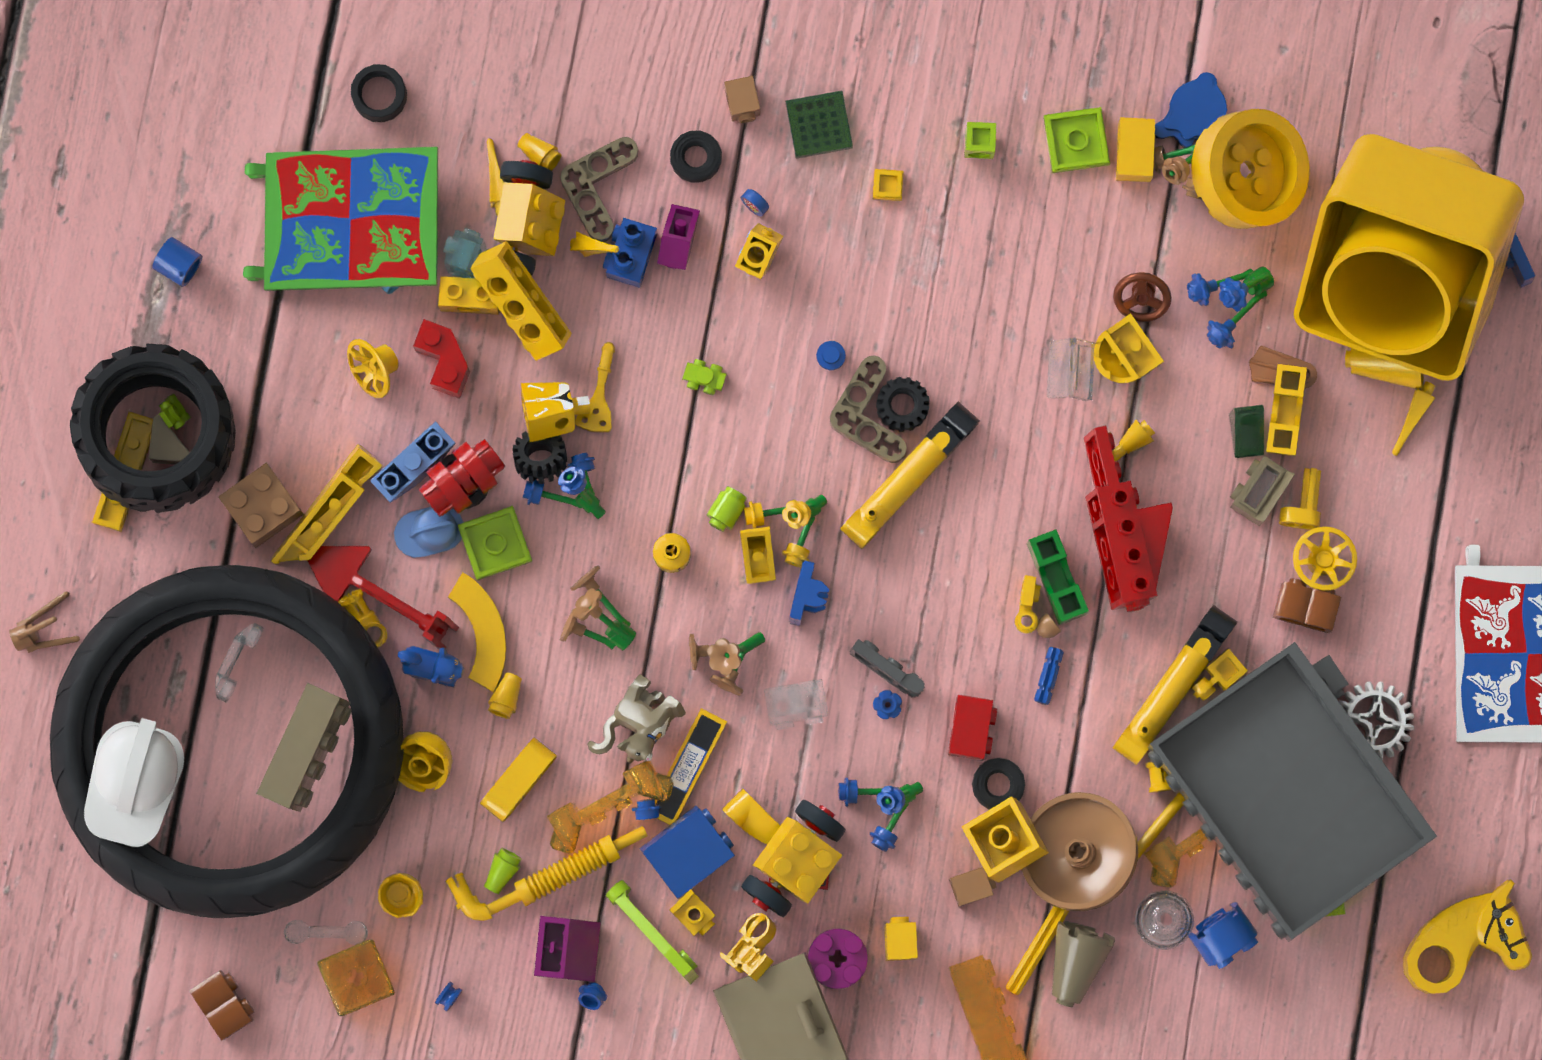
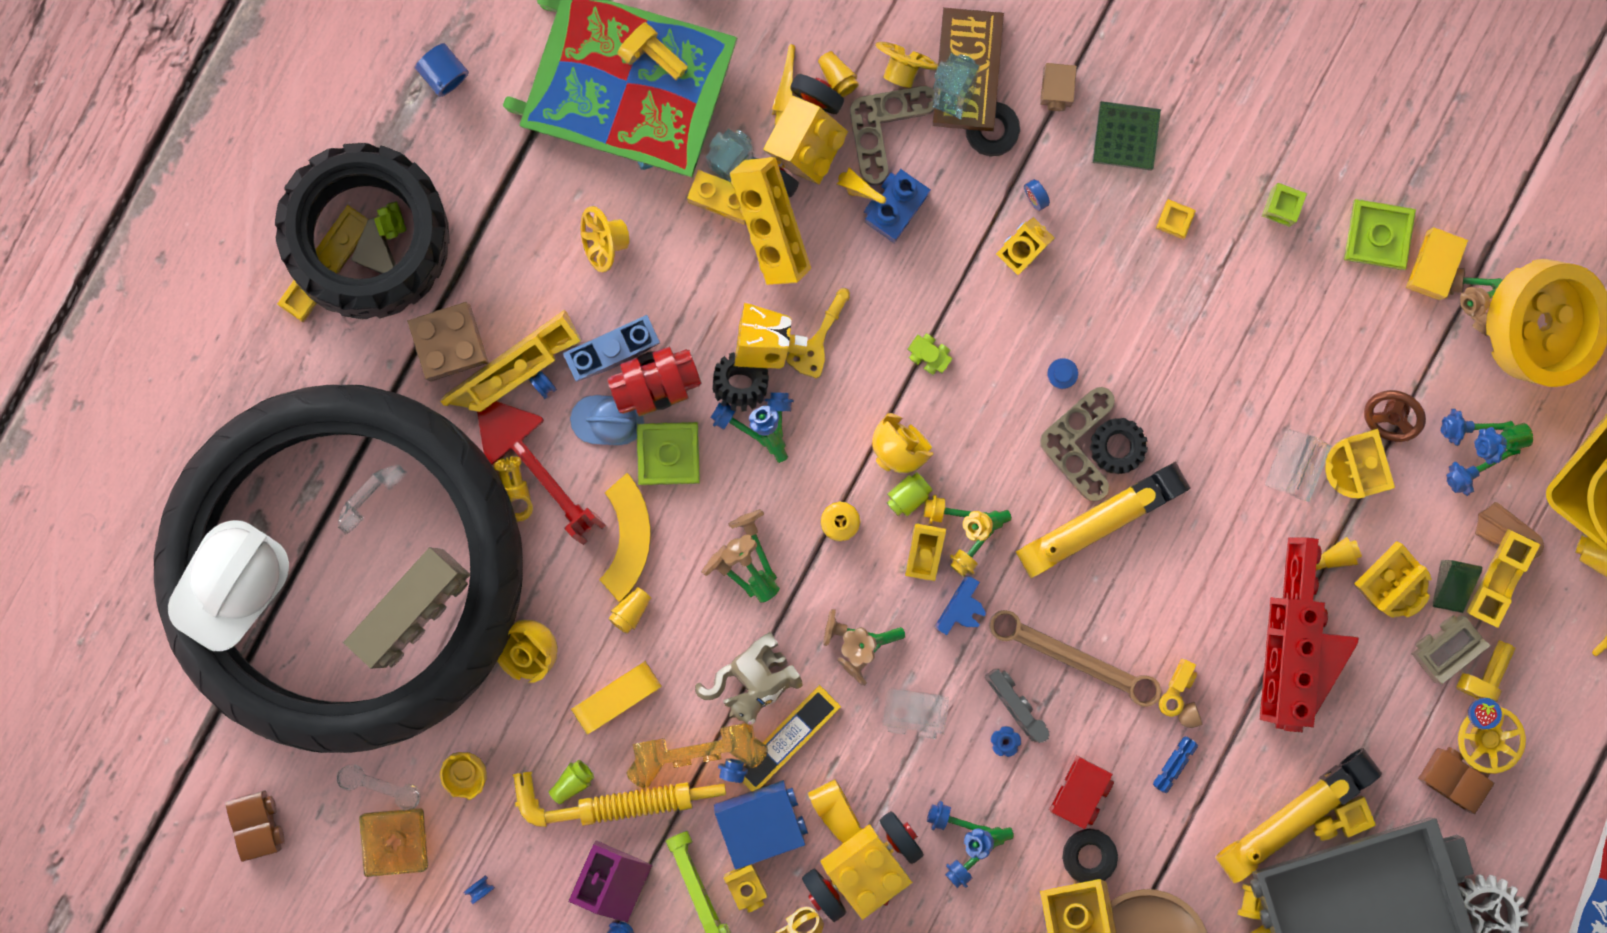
camera: 25 degrees right, 5 degrees up
(26, 633) = (178, 395): medium nougat plant -> none
(356, 176) = (645, 40): none -> yellow piece
(359, 516) = (542, 384): none -> blue bush
(432, 666) = (565, 559): blue animal -> none
(441, 345) = (681, 265): red brick -> none
(596, 127) = (901, 67): none -> yellow wheel
(648, 126) = (955, 84): none -> clear light blue brick
(656, 110) = (979, 37): none -> reddish brown tile
(678, 237) = (948, 205): magenta slope -> none
(703, 468) = (899, 446): none -> yellow cylinder
(926, 608) = (1075, 658): none -> medium nougat piece
(1056, 577) = (1215, 672): green arch -> none
(1192, 110) = (1507, 243): blue tile -> none
(1193, 447) = (1396, 583): none -> yellow slope
(1309, 536) = (1484, 713): none -> tile

